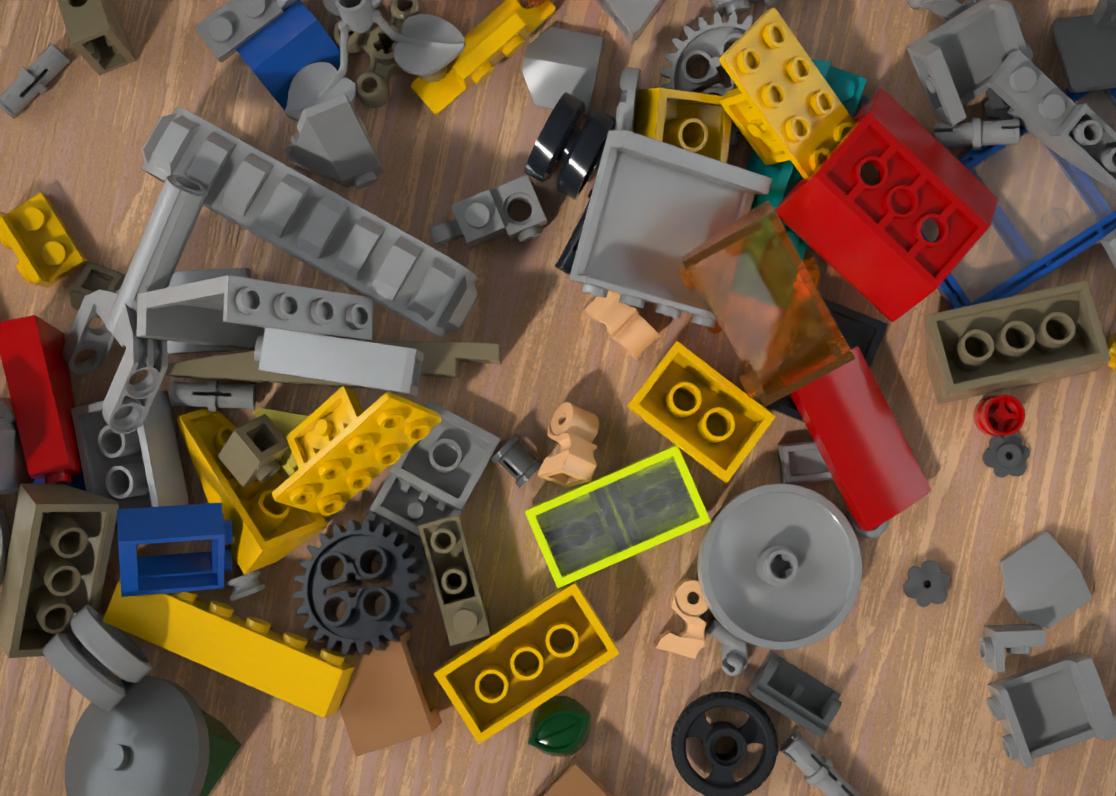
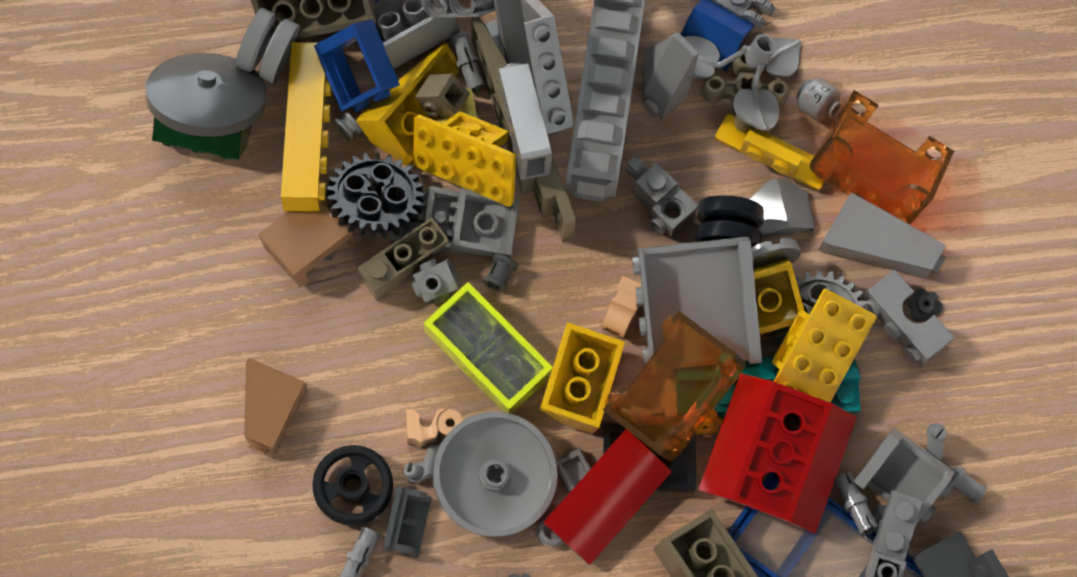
camera: 70 degrees right, 15 degrees down
(500, 547) = (445, 276): none -> light grey brick
(526, 661) = (364, 325): yellow brick -> none
(559, 726) = (323, 370): dark green hat -> none
(575, 432) = (534, 302): light nougat leg -> none

